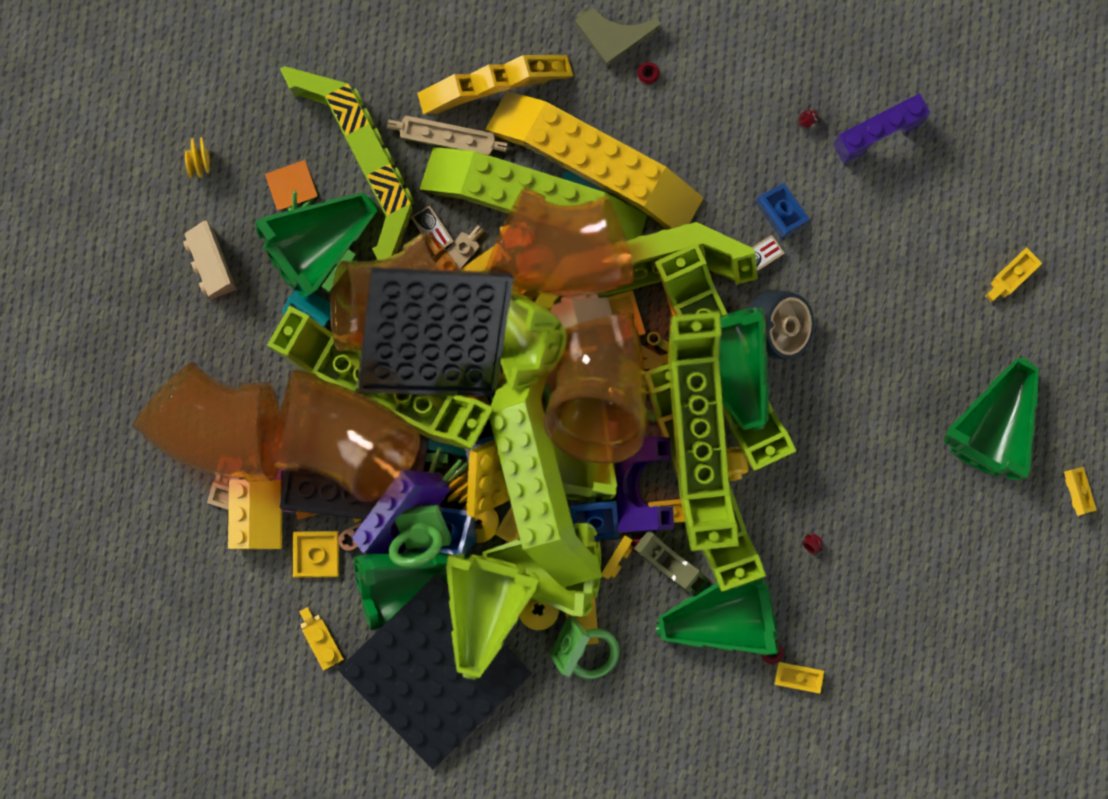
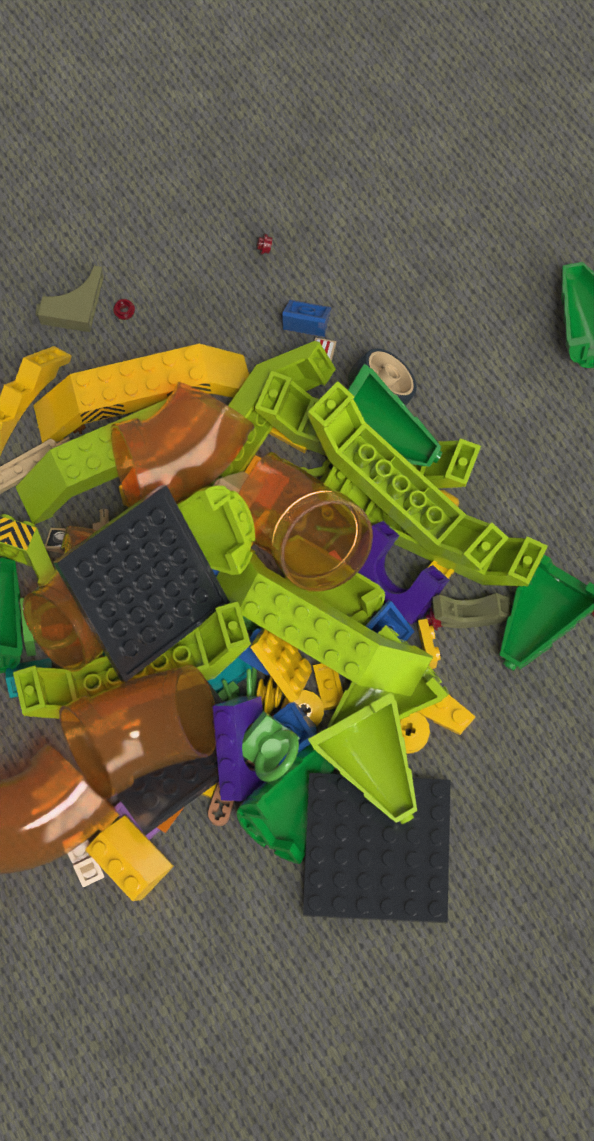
camera: 45 degrees left, 15 degrees down
(315, 554) = (203, 848): yellow tile -> none
(320, 639) = (267, 908): yellow hinge -> none
(571, 646) = (459, 732): bright green tile -> none
(812, 543) = (552, 510): dark red plate -> none
(901, 117) = (326, 188): dark purple arch -> none
(1013, 274) = (503, 223): yellow hinge -> none

